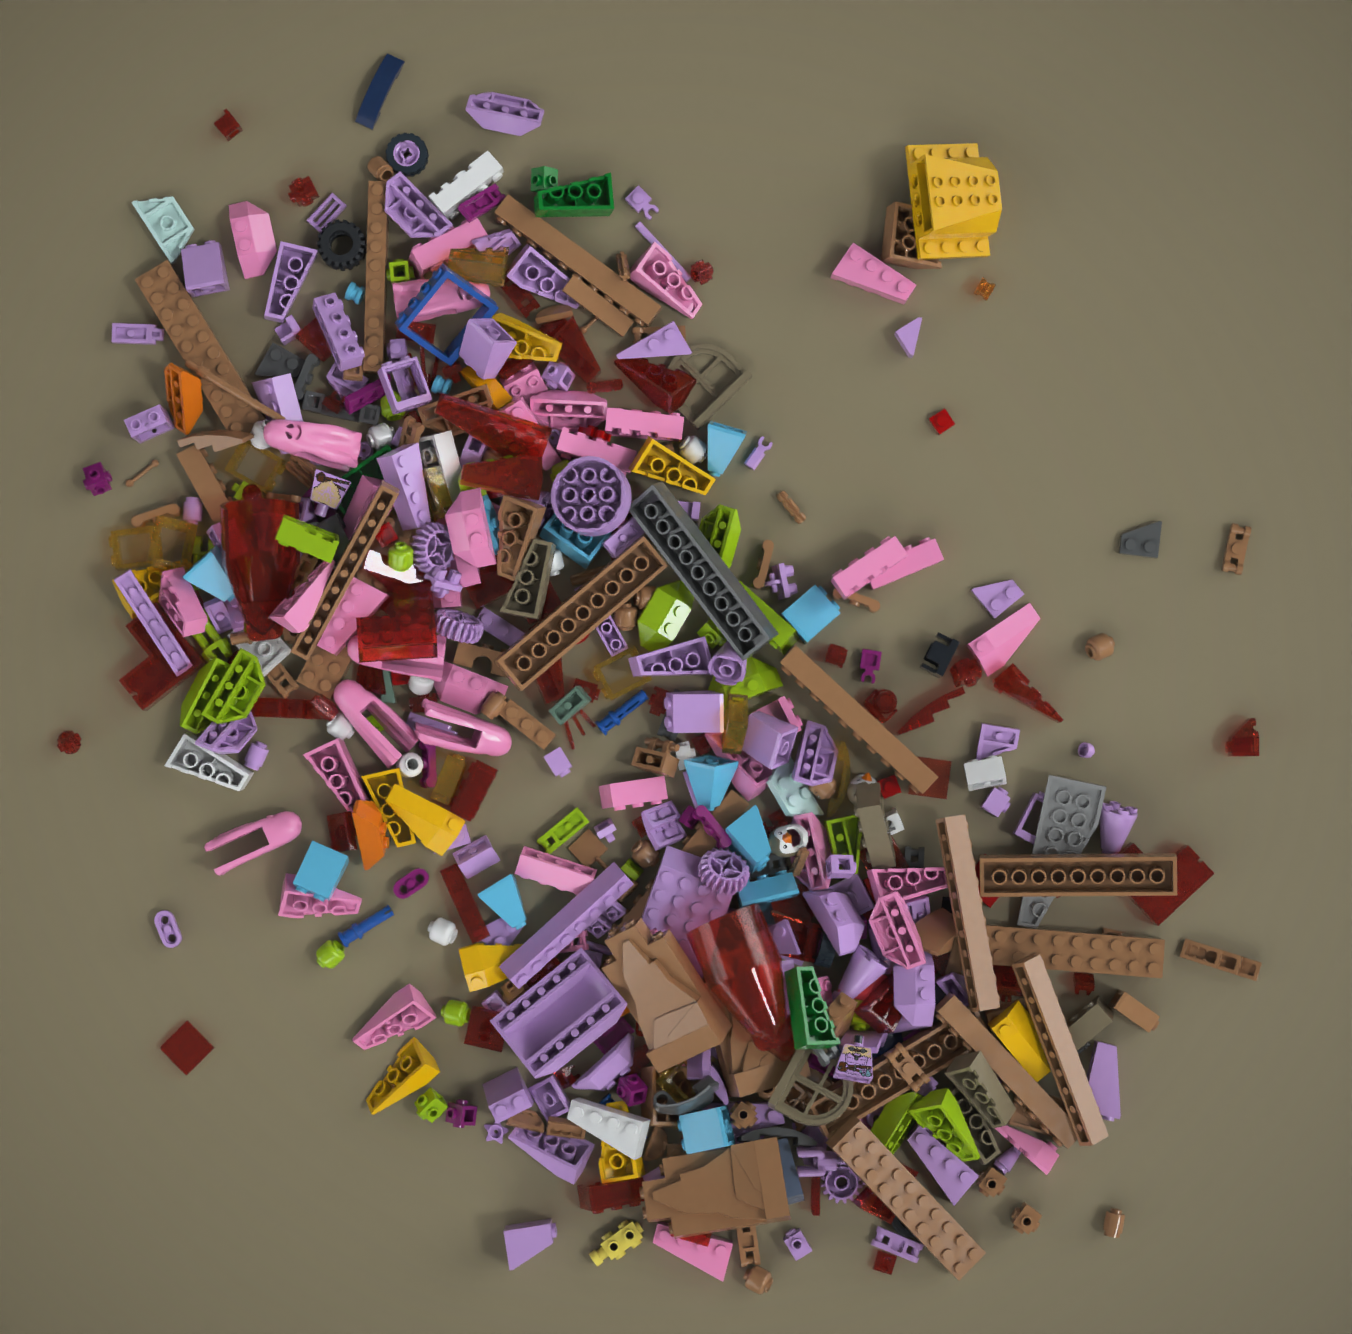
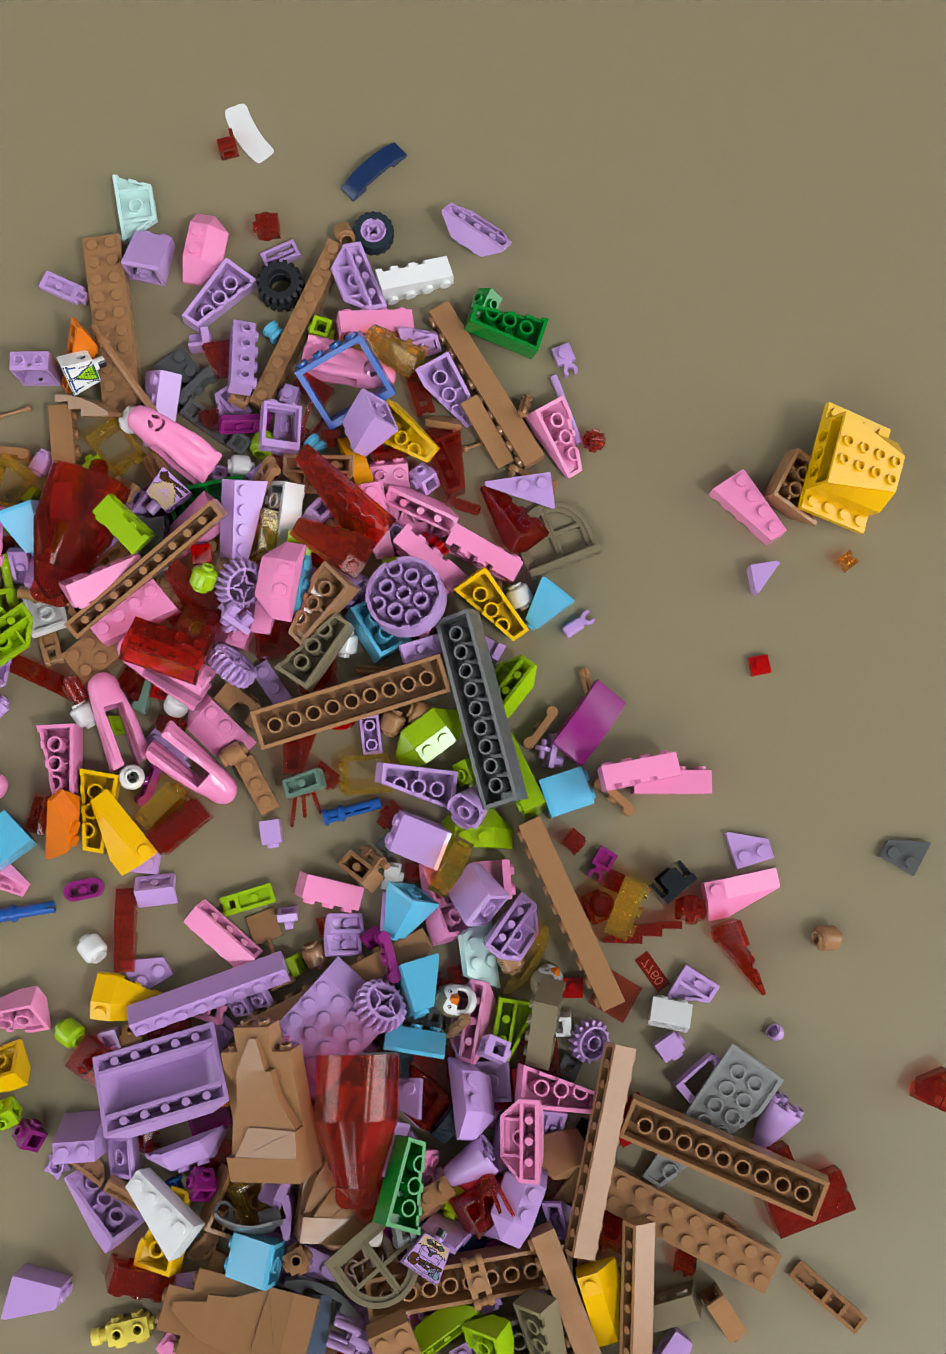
camera: 20 degrees right, 5 degrees down
(195, 408) = (81, 370): none -> white torso
(240, 103) = (247, 133): none -> white sticker
(481, 203) = (420, 298): magenta plate -> none
(506, 901) = (162, 945): medium azure slope -> none
(805, 541) = (588, 723): none -> magenta slope
(886, 983) = (489, 1187): none -> clear red plant
(888, 676) = (613, 881): none -> clear red tile
(907, 693) = (627, 907): none -> clear yellow wedge
(921, 826) = (589, 1040): none -> lavender gear
(955, 743) = (652, 971): none -> clear red sticker

